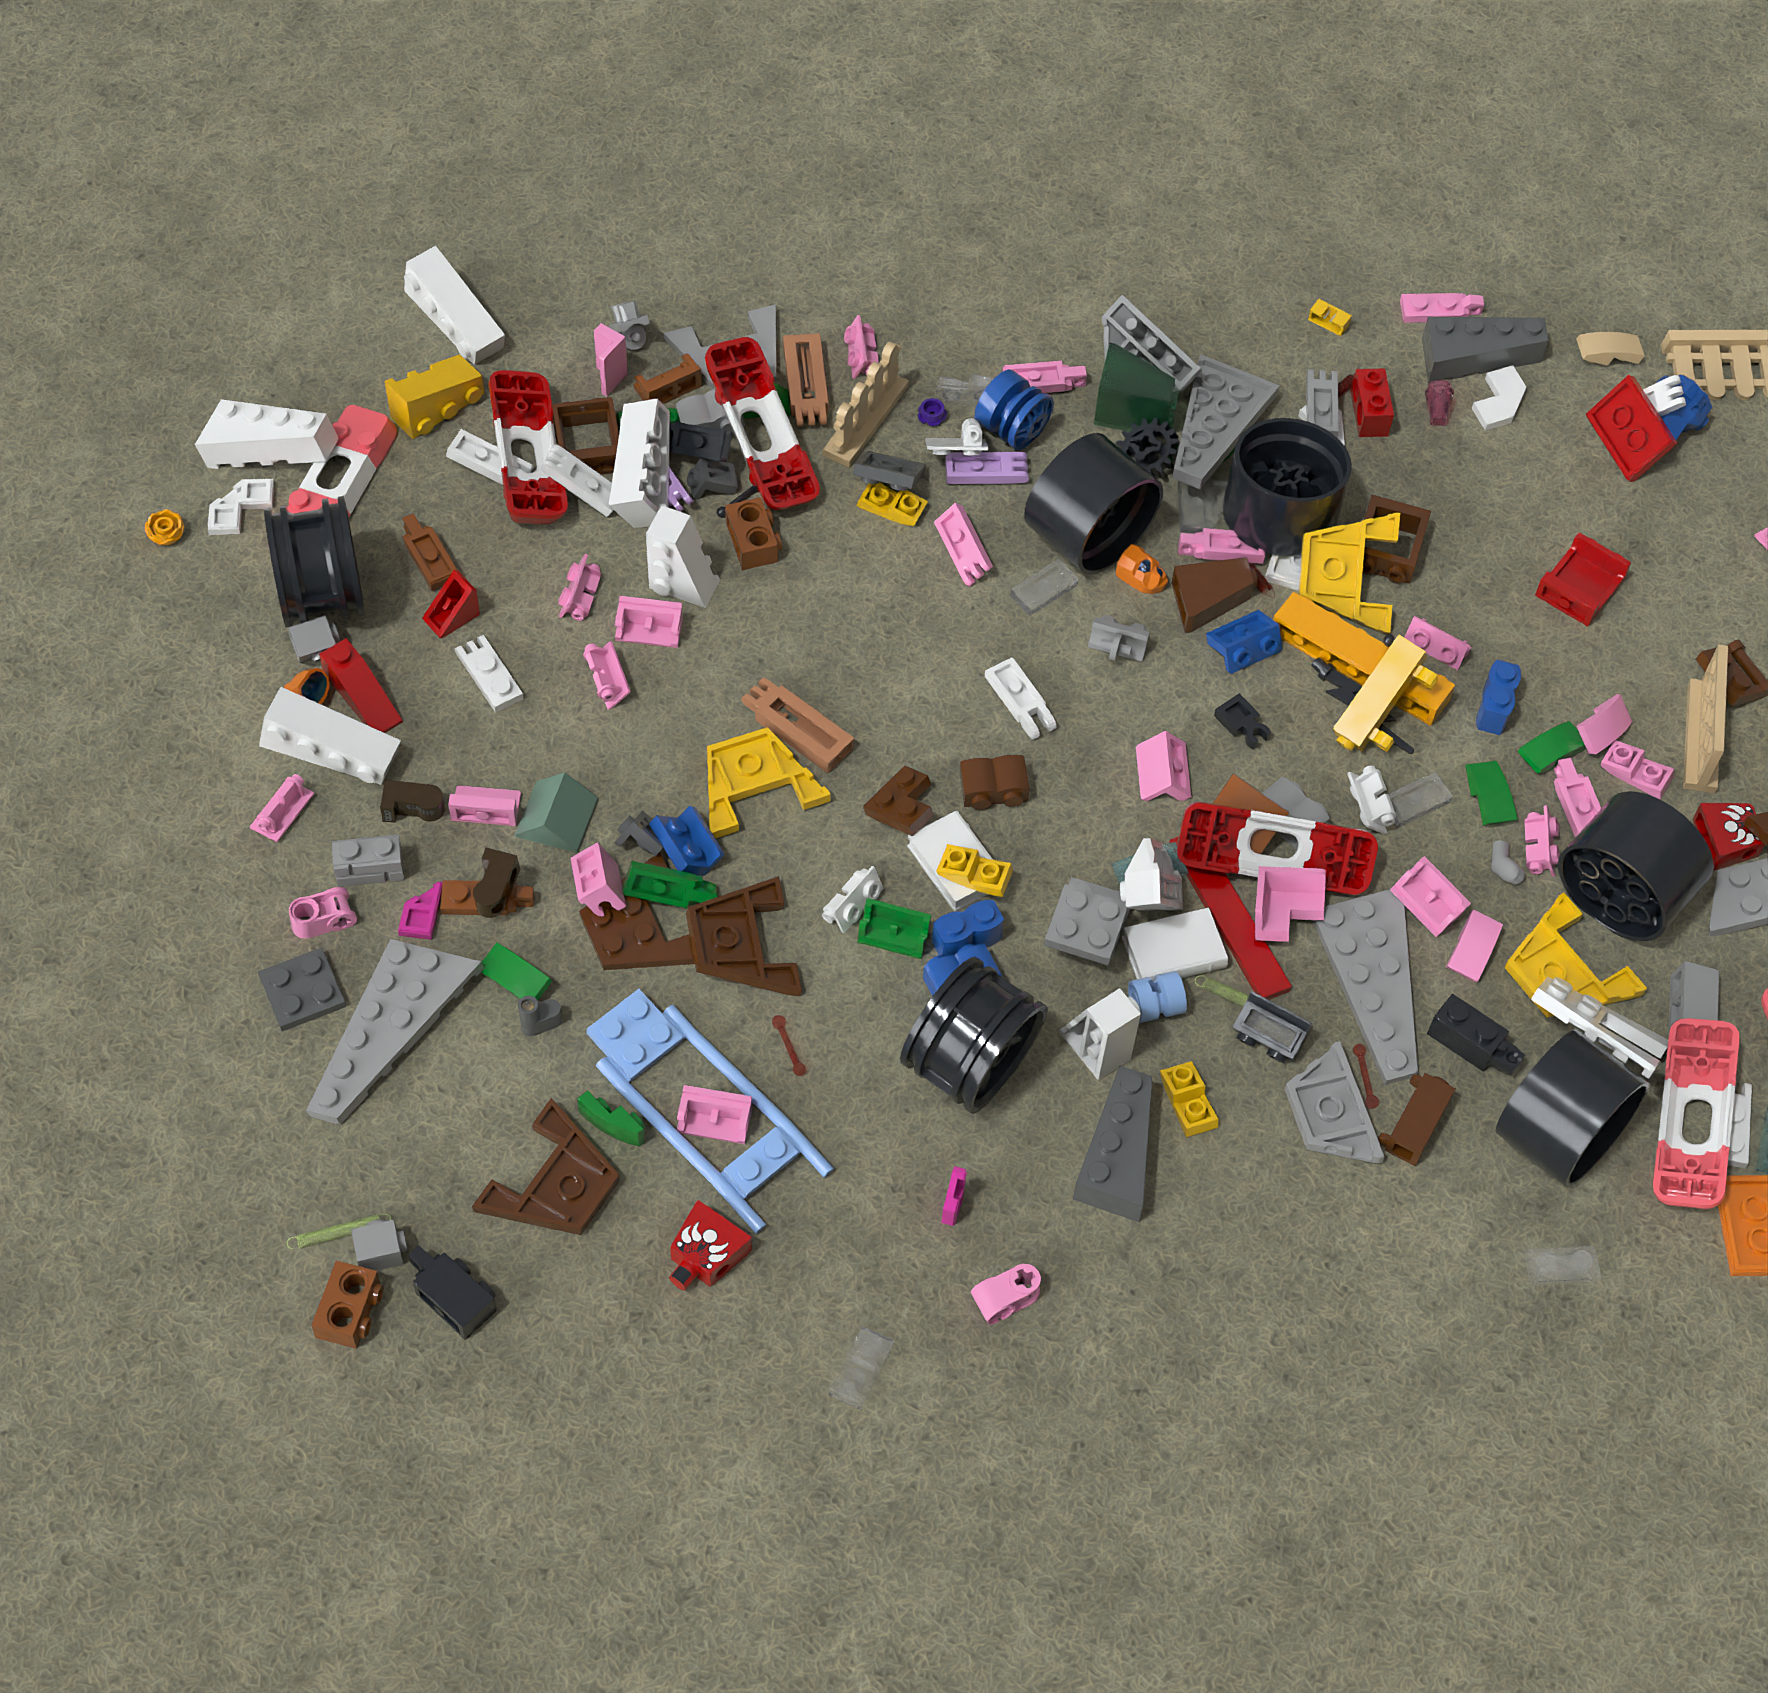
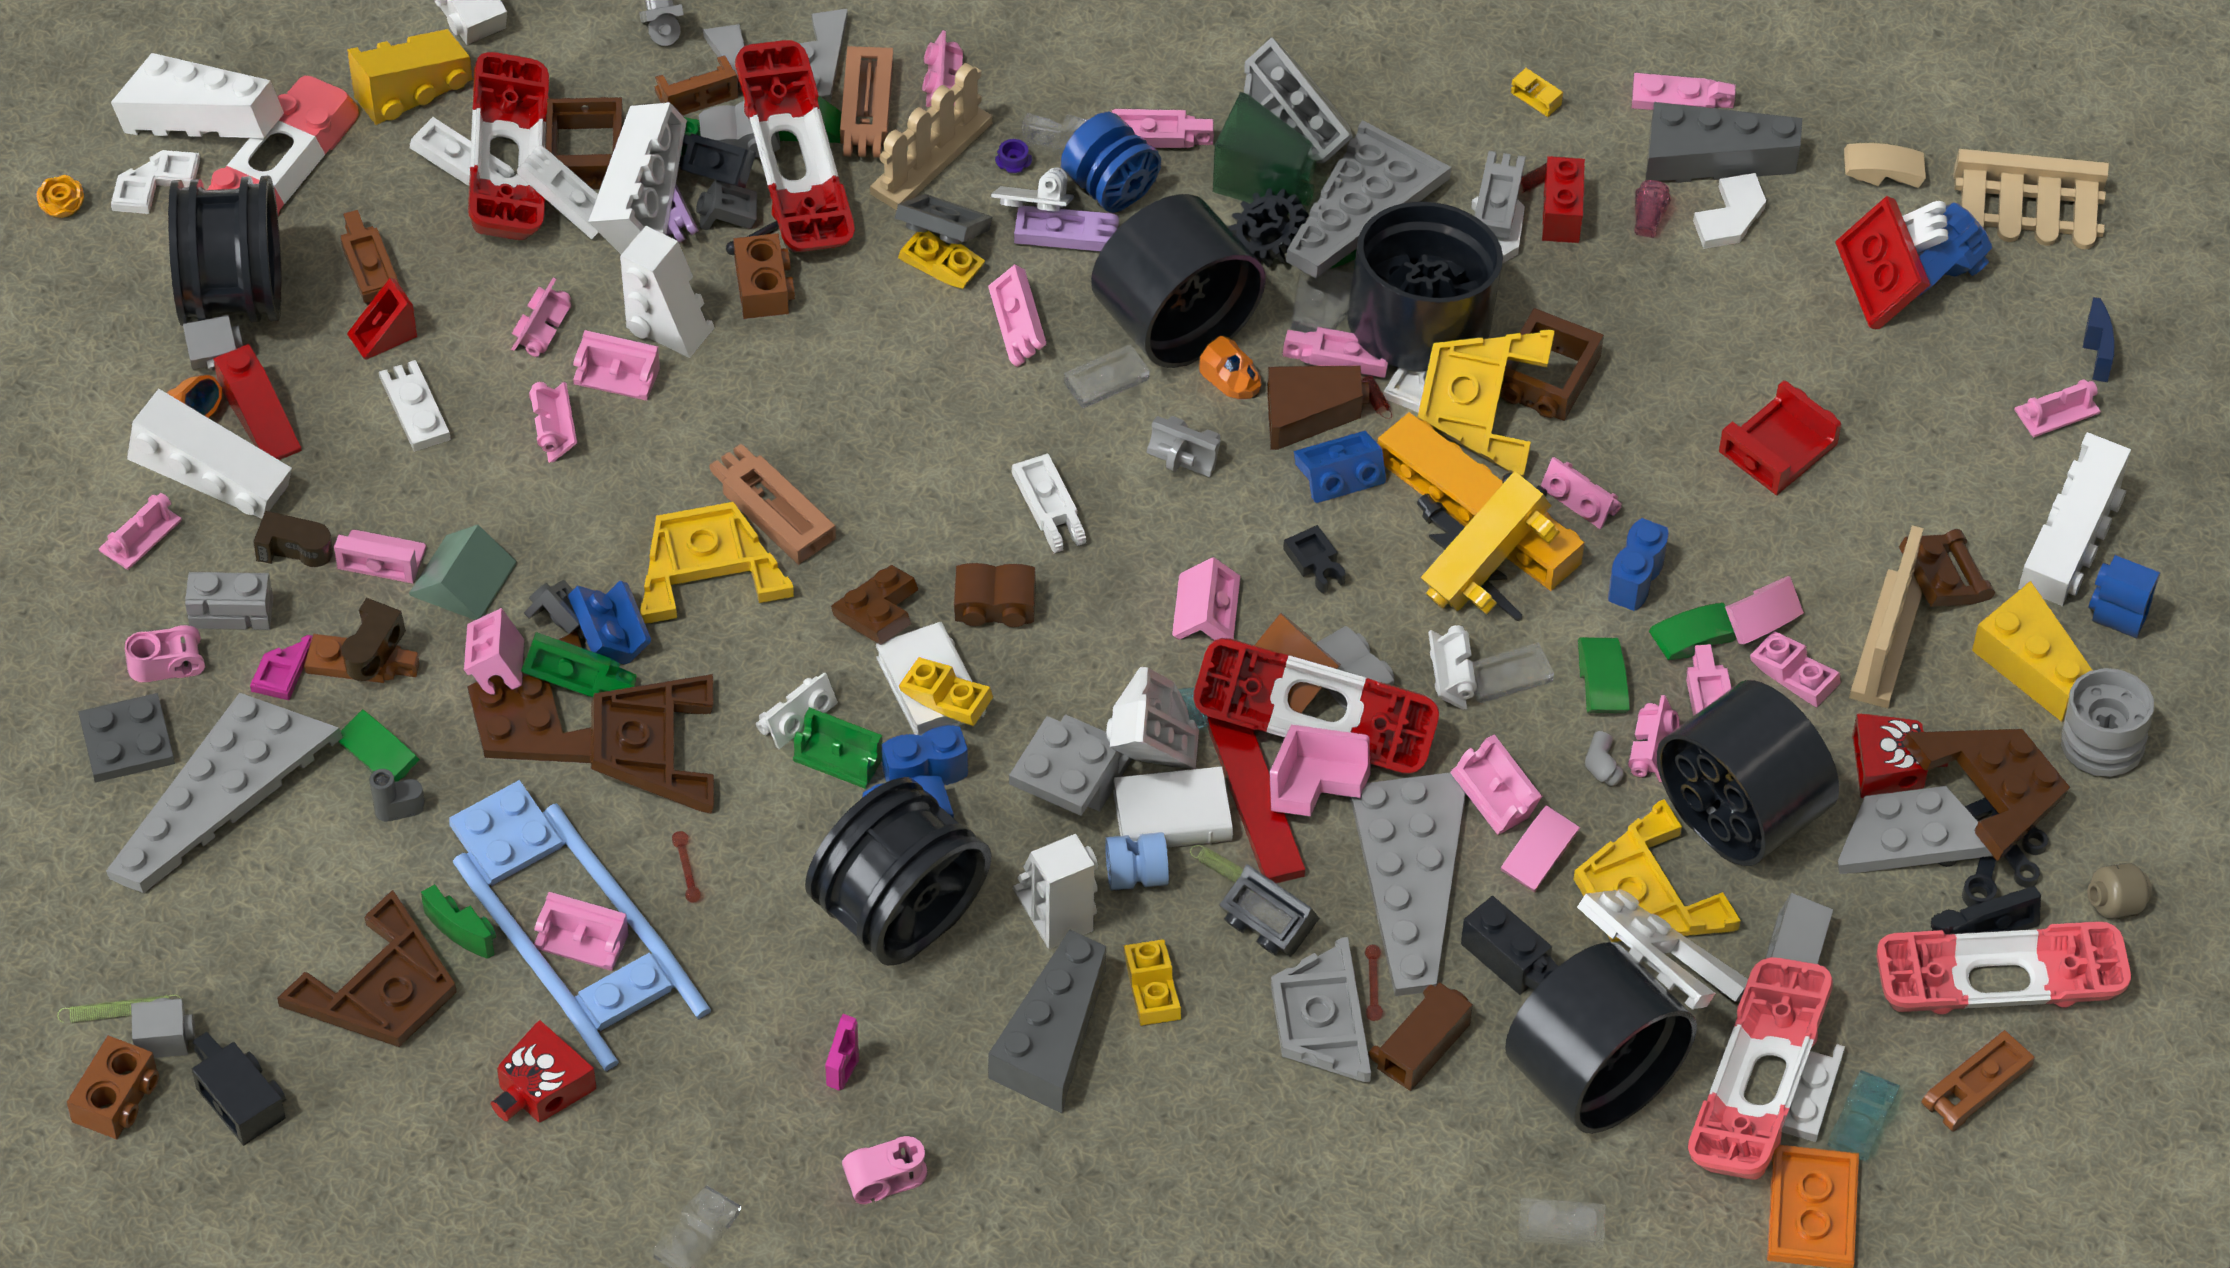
camera: 10 degrees right, 5 degrees down
(610, 357) = (629, 52): bright pink panel -> none

